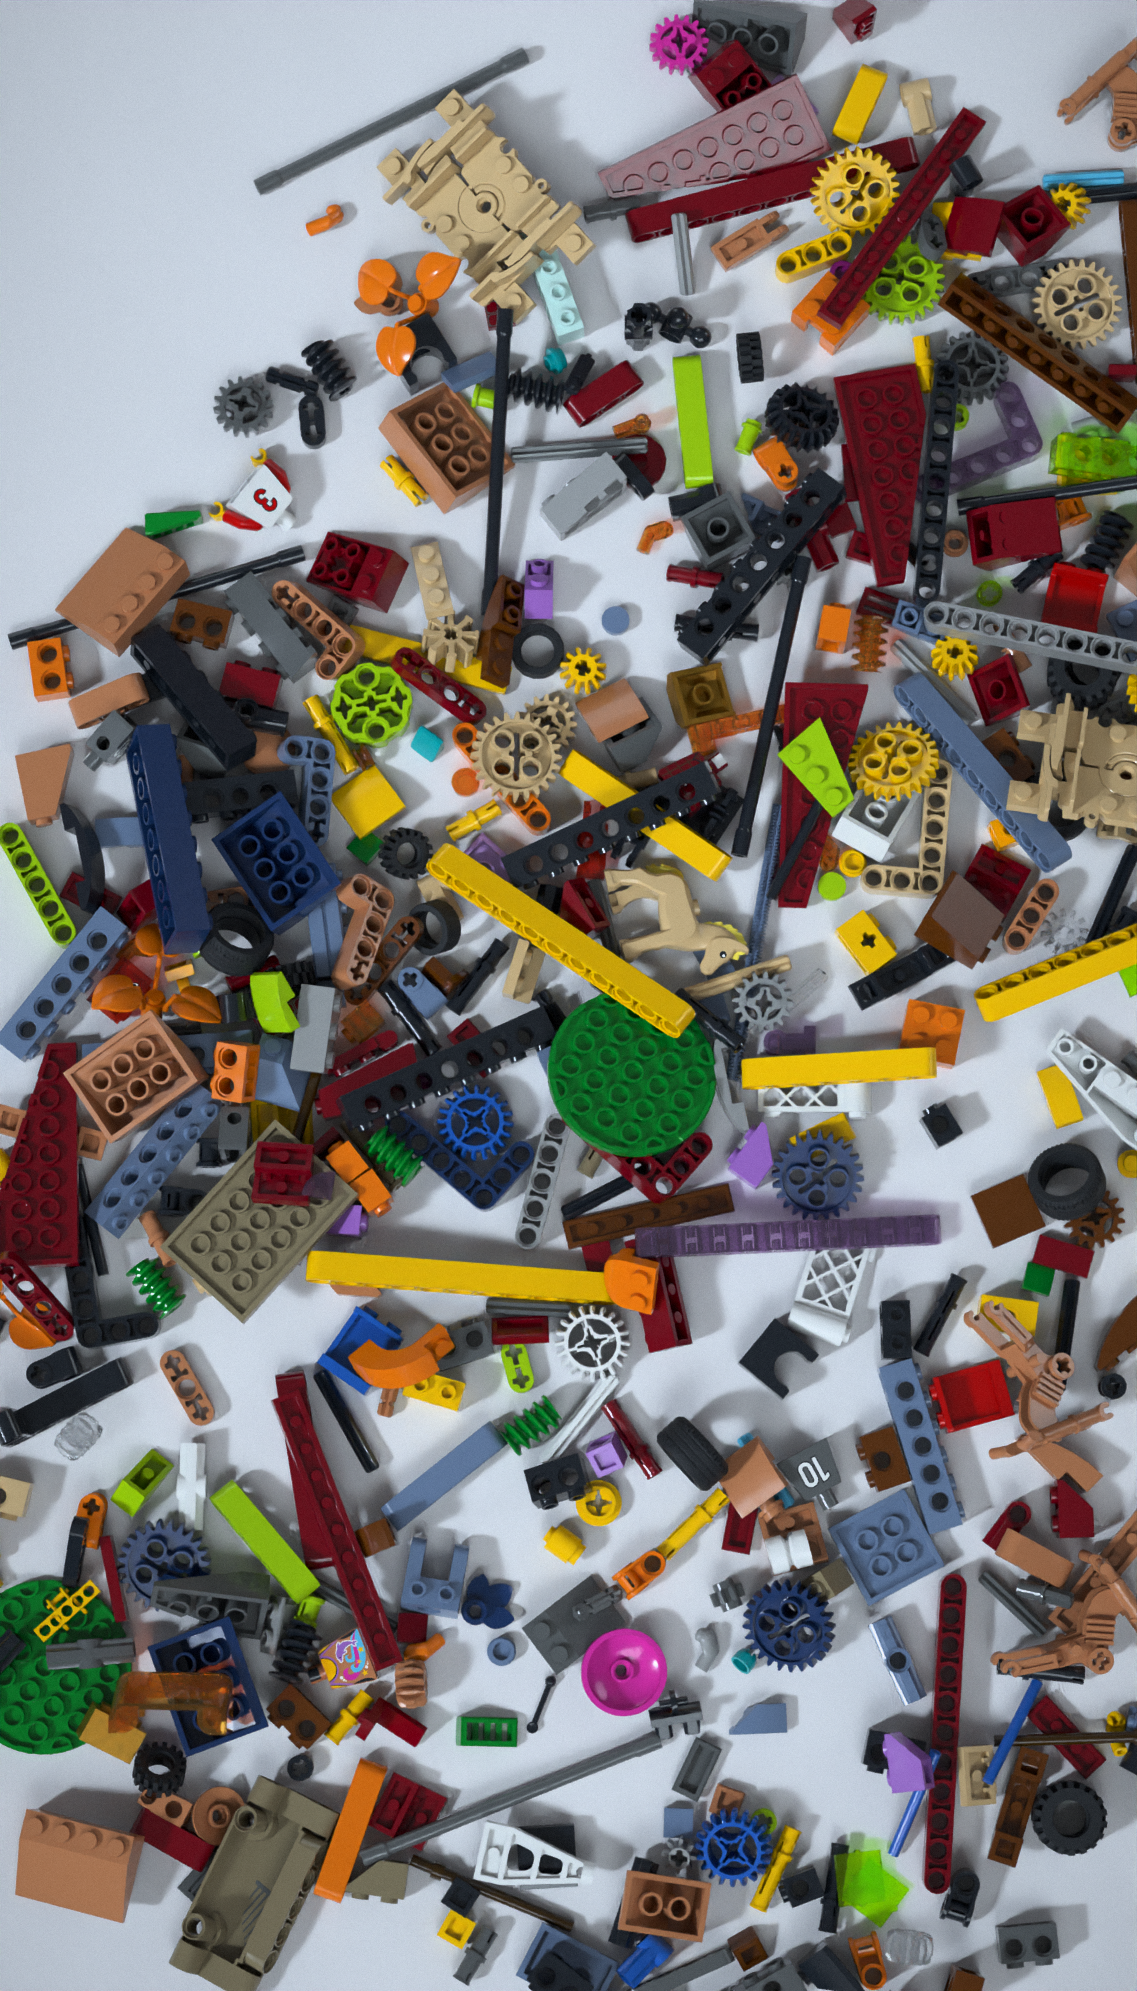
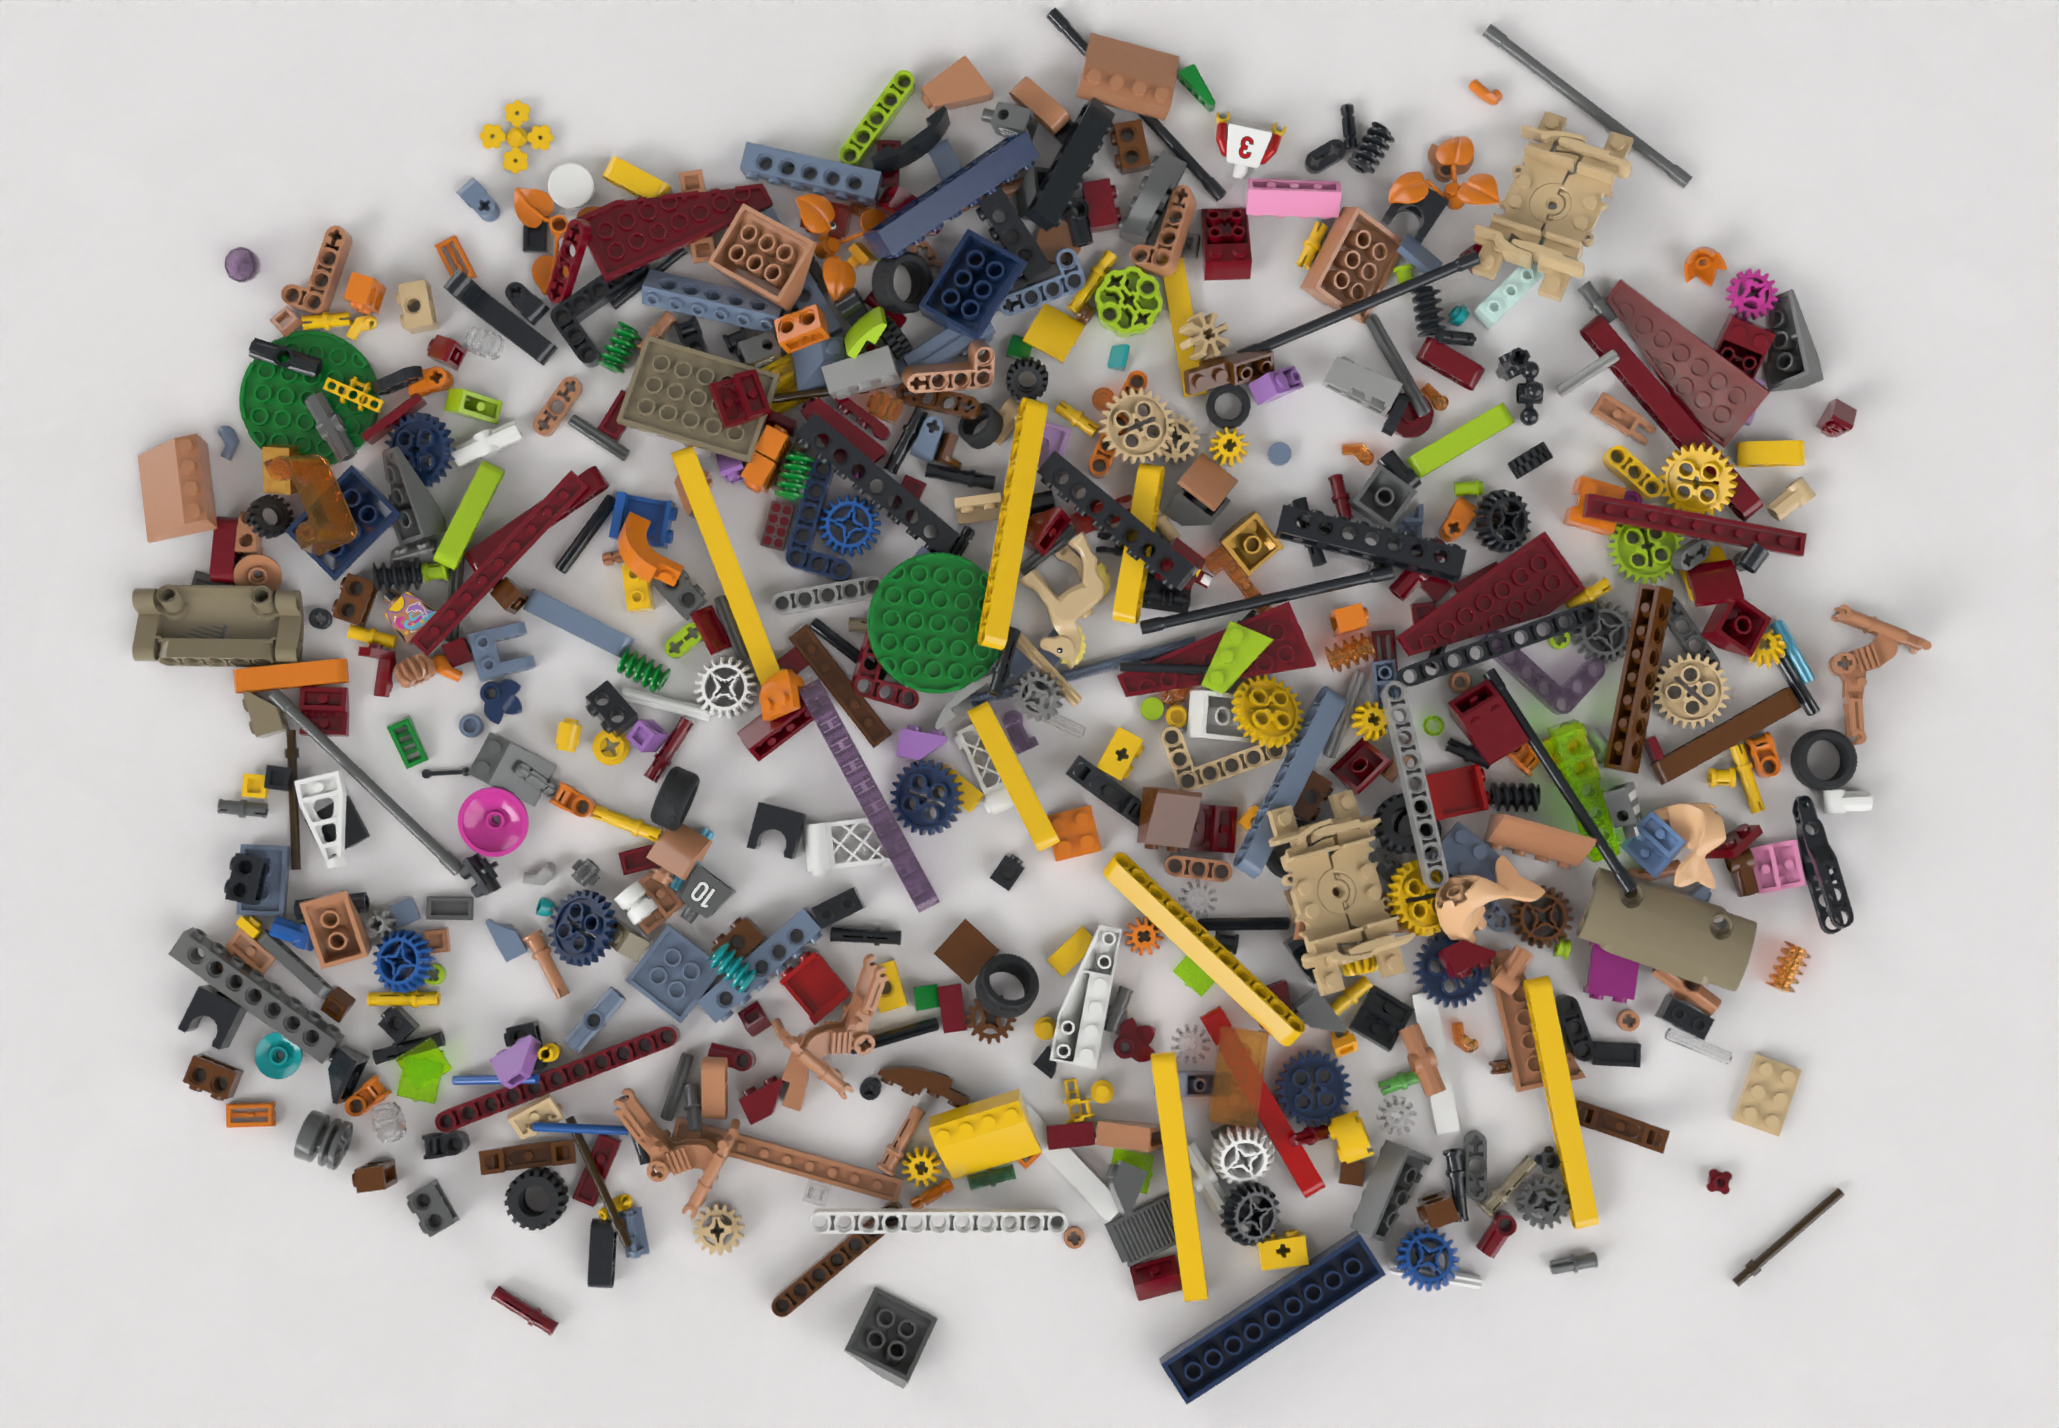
camera: 65 degrees right, 5 degrees up
(43, 671) = (1039, 46): orange brick -> none
(49, 1778) = (230, 440): none -> sand blue arm
(66, 1484) = (446, 351): none -> dark red slope
(233, 1332) = (609, 425): none -> dark red tile
(244, 1357) = (599, 437): none -> dark grey axle
(255, 410) = (1321, 97): dark grey gear -> none
(320, 1186) = (742, 429): clear purple tile -> none
(343, 476) = (1293, 198): none -> bright pink brick
(432, 580) = (1244, 301): tan plate -> none
(437, 1203) = (777, 525): none -> dark red tile
(440, 683) = (1169, 345): dark red beam -> none
(622, 79) = (1703, 264): none -> orange piece
(795, 1687) = (542, 953): none -> nougat pin
(910, 1473) = (733, 967): none -> teal piece
(919, 1726) = (549, 1052): none -> yellow pin
(976, 1482) = (754, 1019): none -> dark red slope
(1076, 1020) = (1143, 944): none -> orange gear

